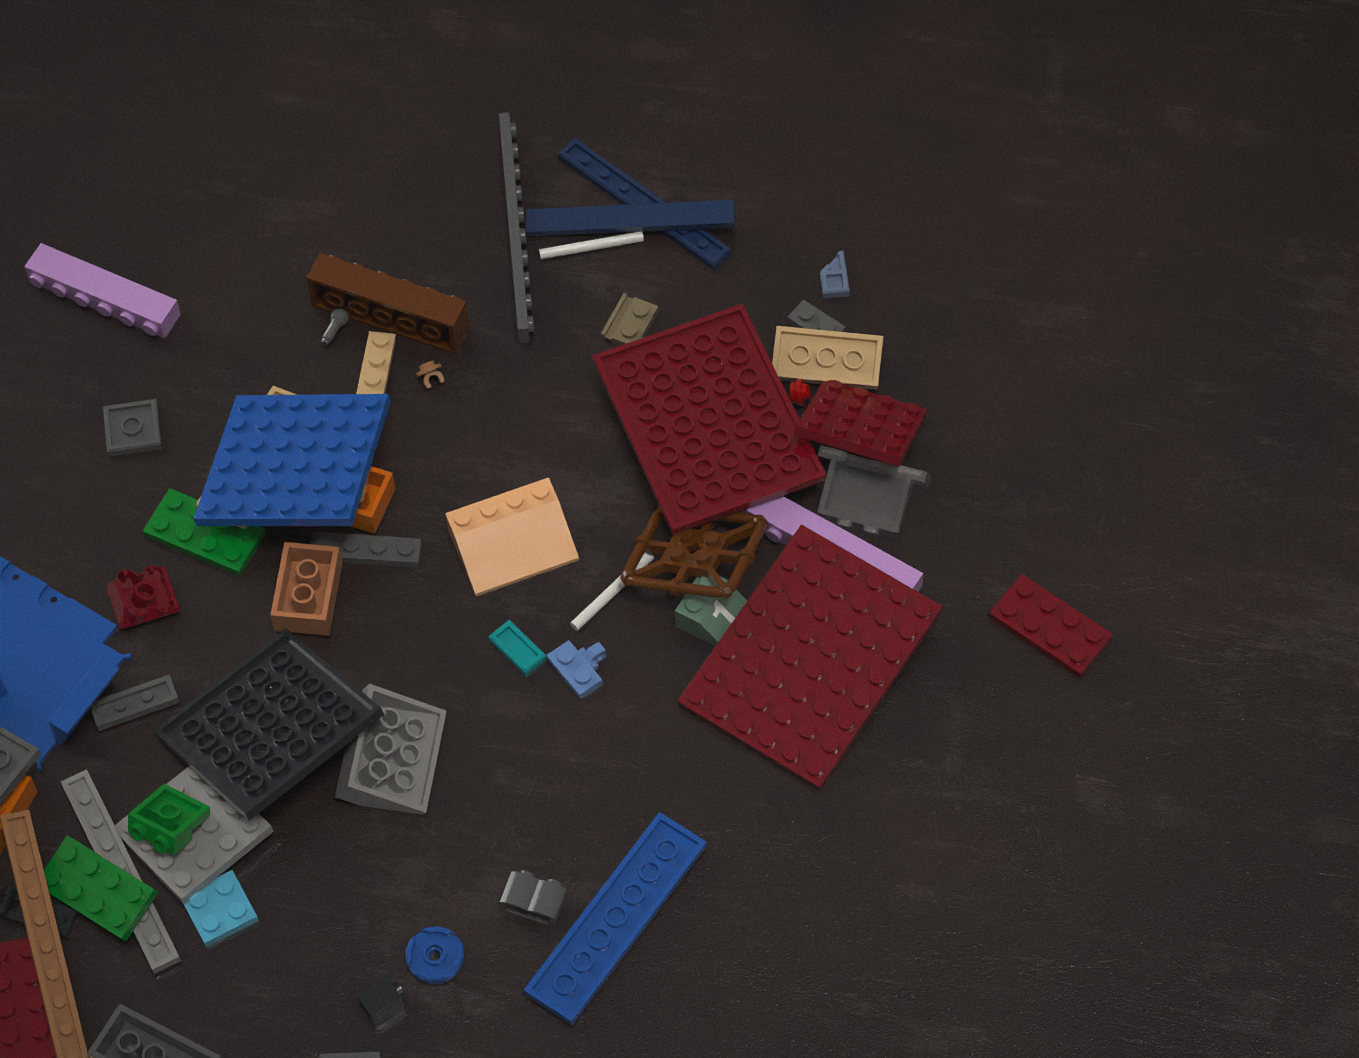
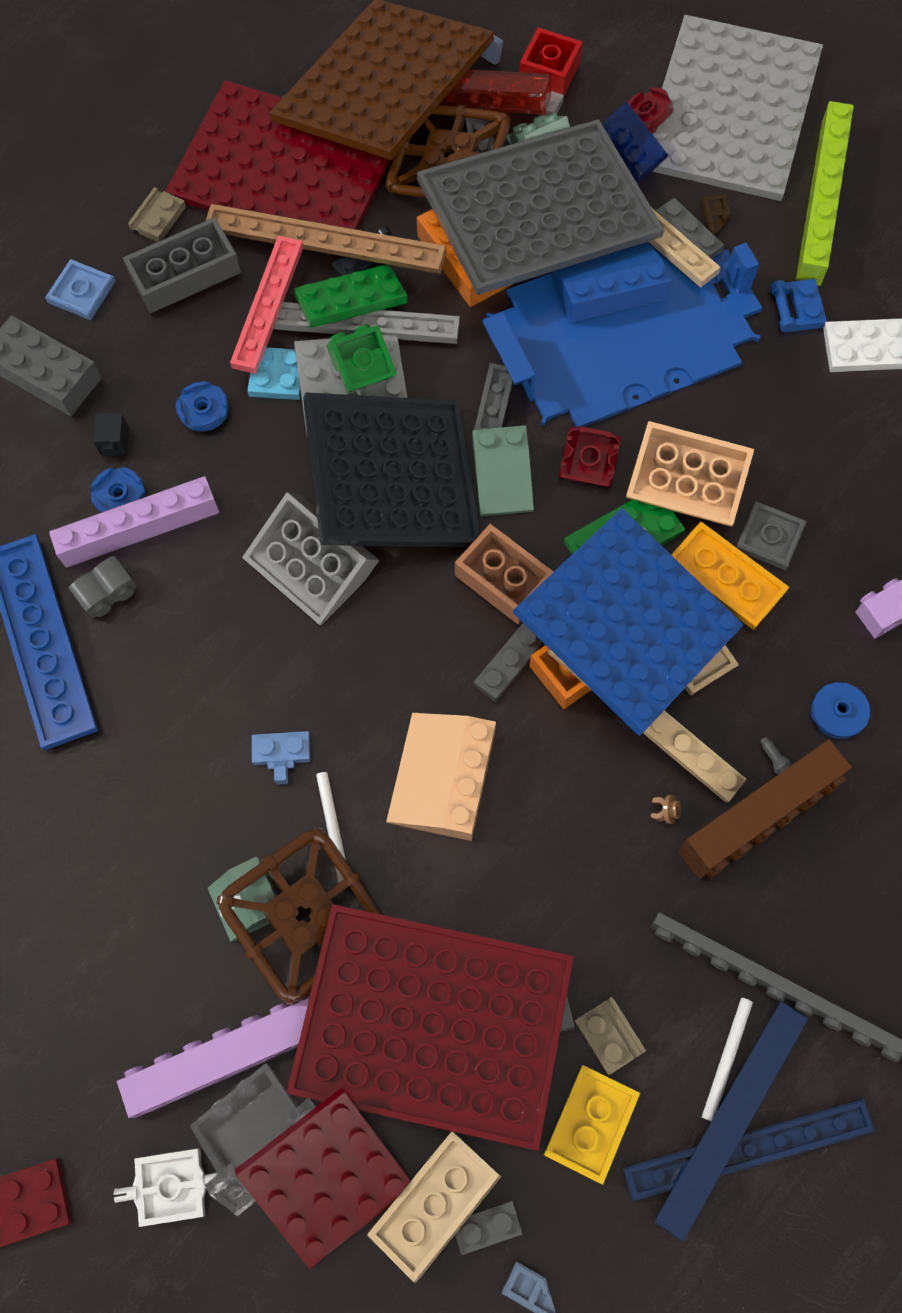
camera: 125 degrees right, 10 degrees up
(117, 505) = (690, 473): none -> light nougat slope
(154, 947) = (266, 305): none -> coral plate
(193, 435) = (730, 575): none -> light orange plate
(202, 654) = (502, 470): none -> sand green slope
(267, 314) = (831, 720): none -> blue plate
(293, 932) = (198, 396): none -> blue plate
(455, 912) = (134, 522): none -> lavender brick
(517, 648) = (335, 715): teal tile -> none
(696, 295) = (592, 1124): none -> yellow plate
(799, 392) = (415, 1148): red plate -> none
(810, 656) = (133, 958): dark red plate -> none
(947, 526) = (167, 1187): none -> white plate

